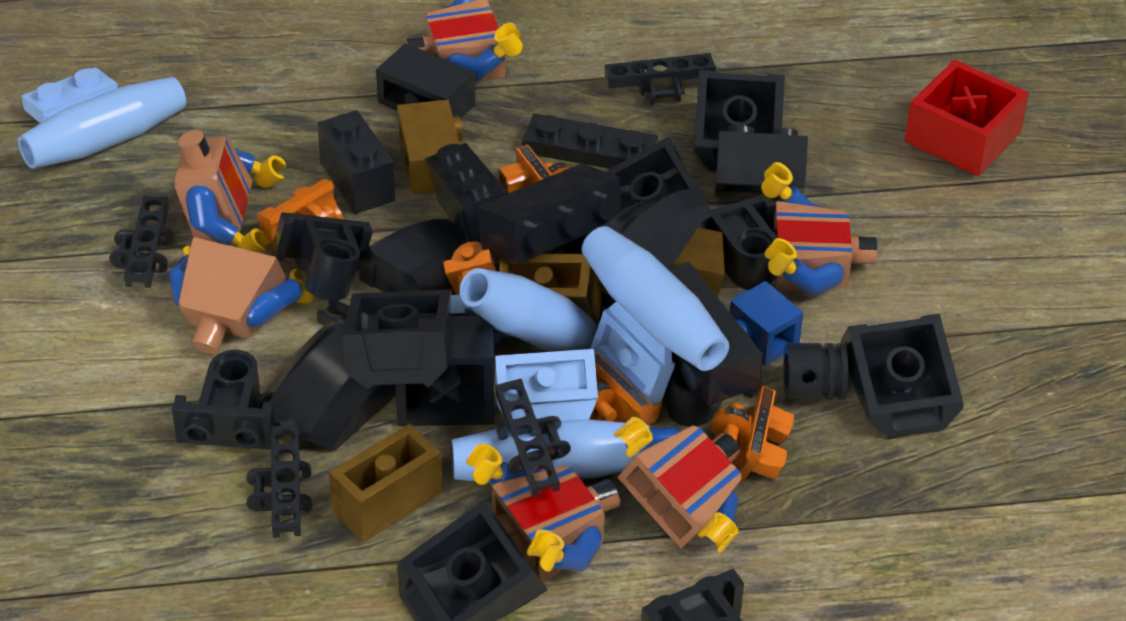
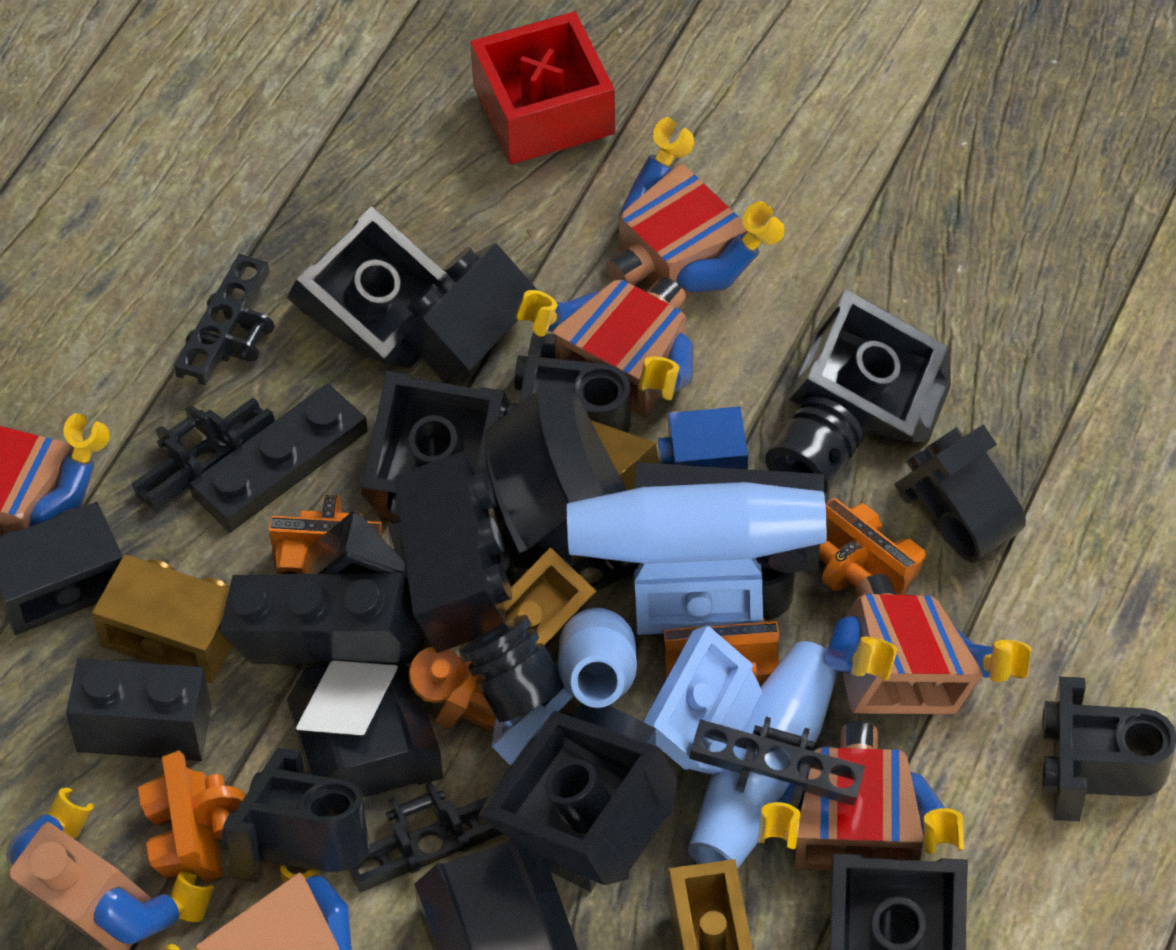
camera: 55 degrees left, 10 degrees up
(425, 233) = (347, 698): none -> white sticker
(476, 253) = (512, 668): none -> black piece
(505, 165) = (351, 548): none -> black slope
(526, 105) = (229, 430): none -> black piece
(846, 457) = (964, 493): none -> black pin
(926, 230) = (682, 227): none -> torso

